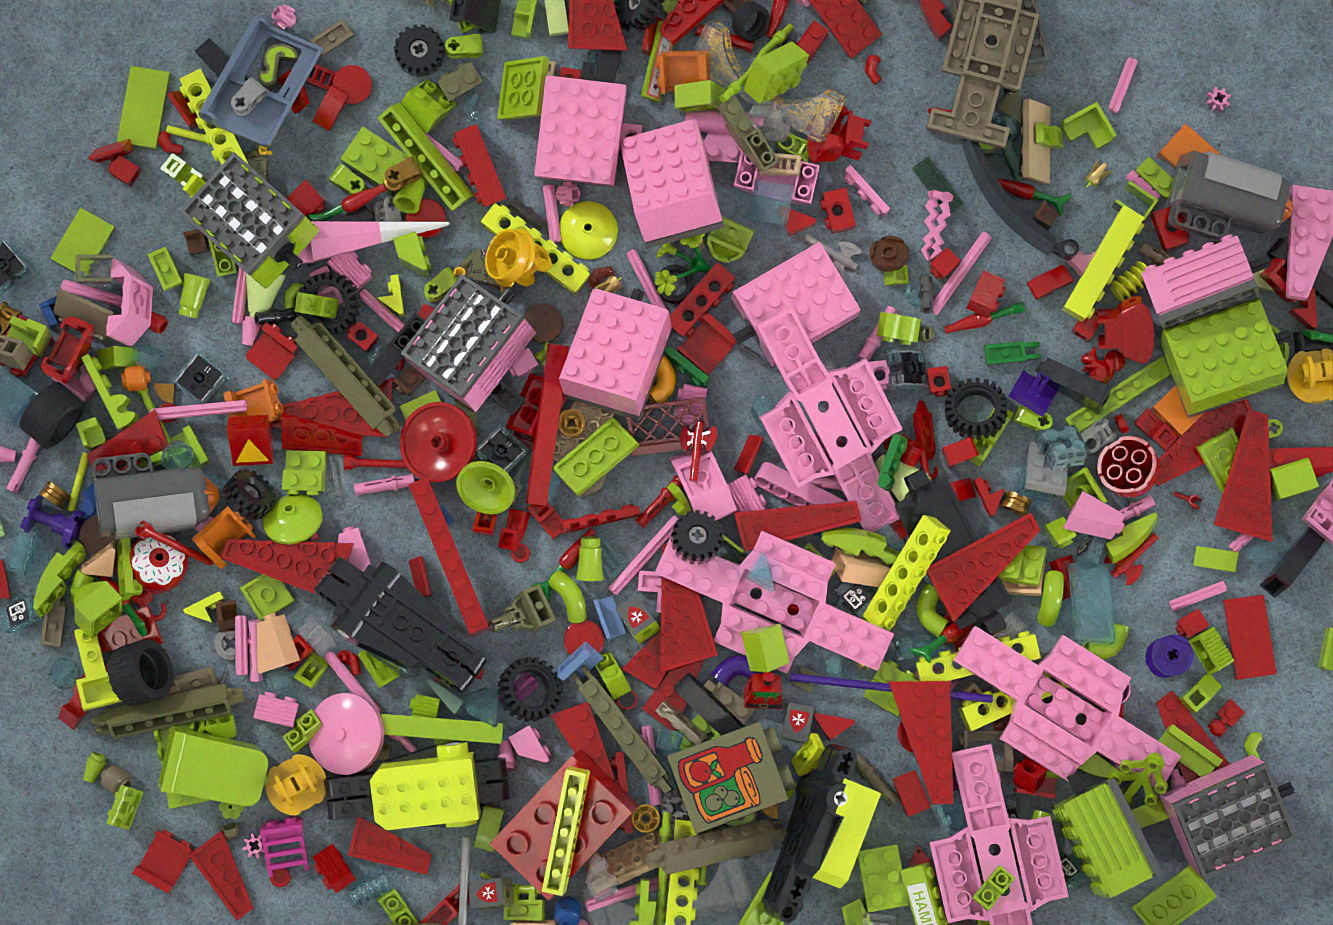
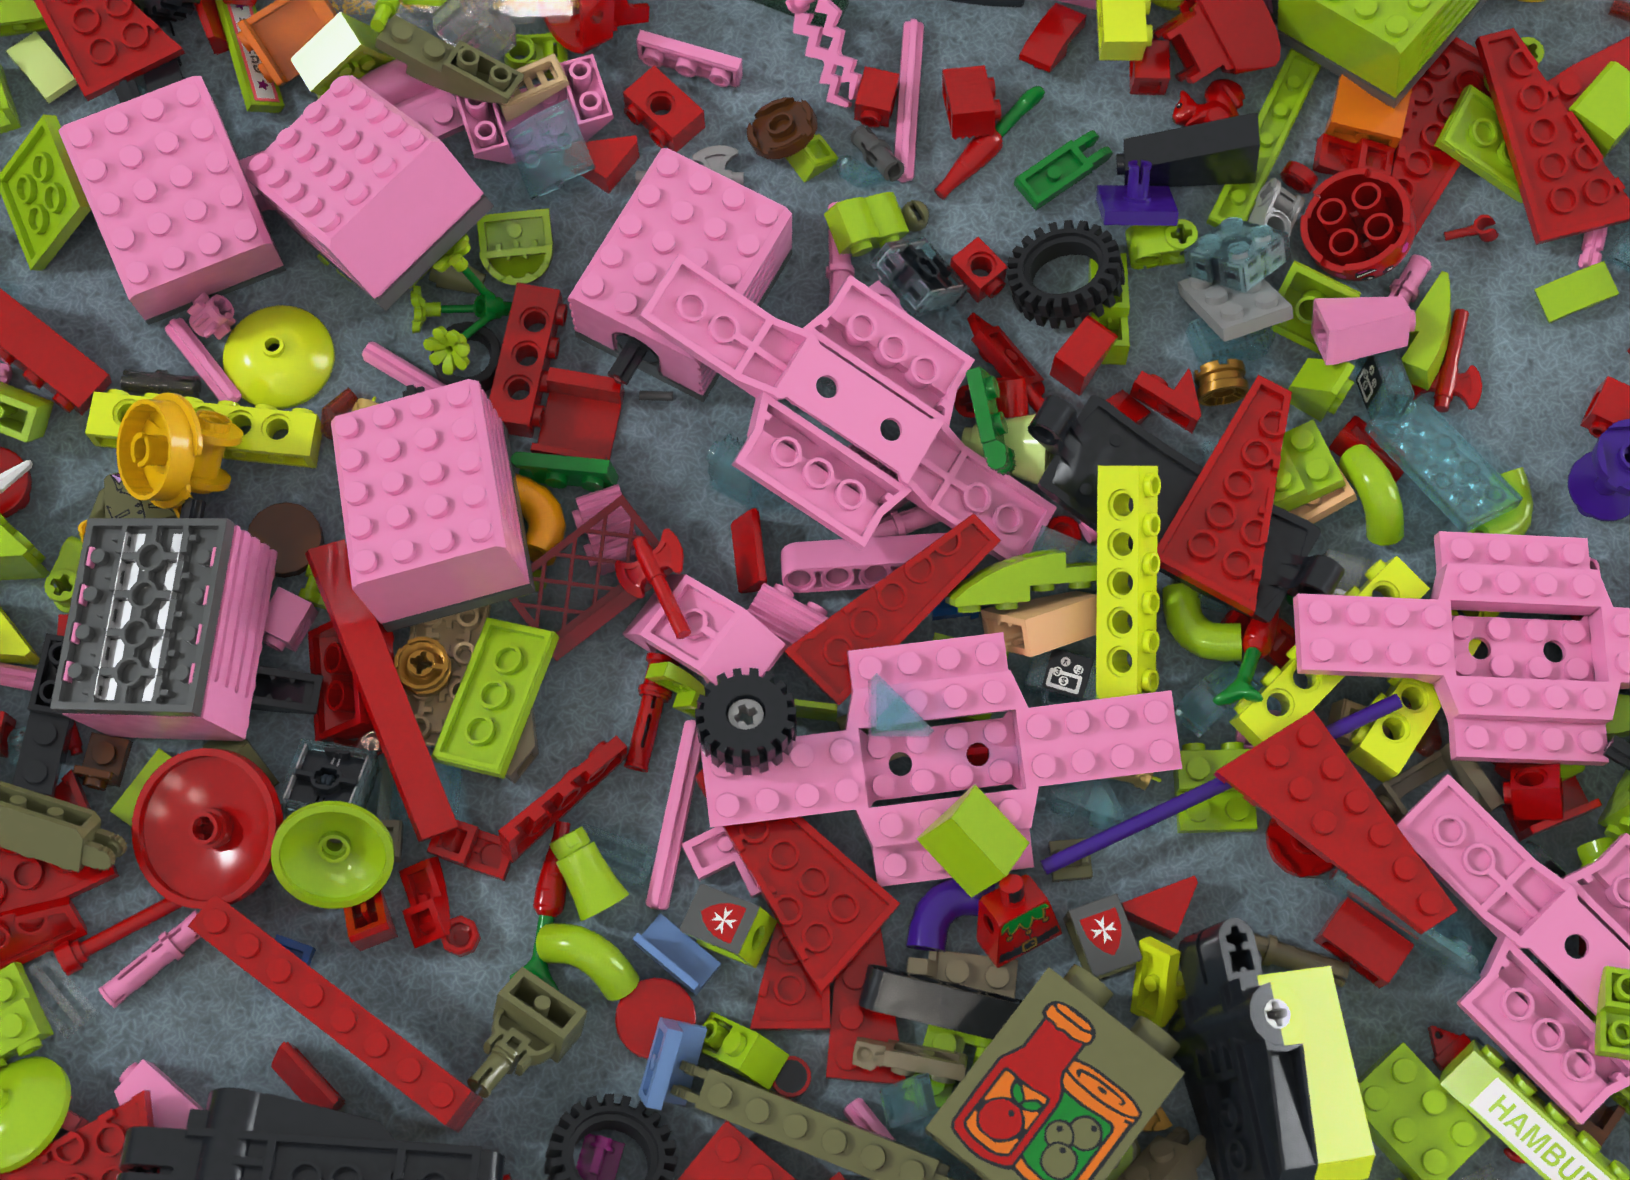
camera: 30 degrees left, 10 degrees down
(1197, 596) = (1587, 364): bright pink axle -> none

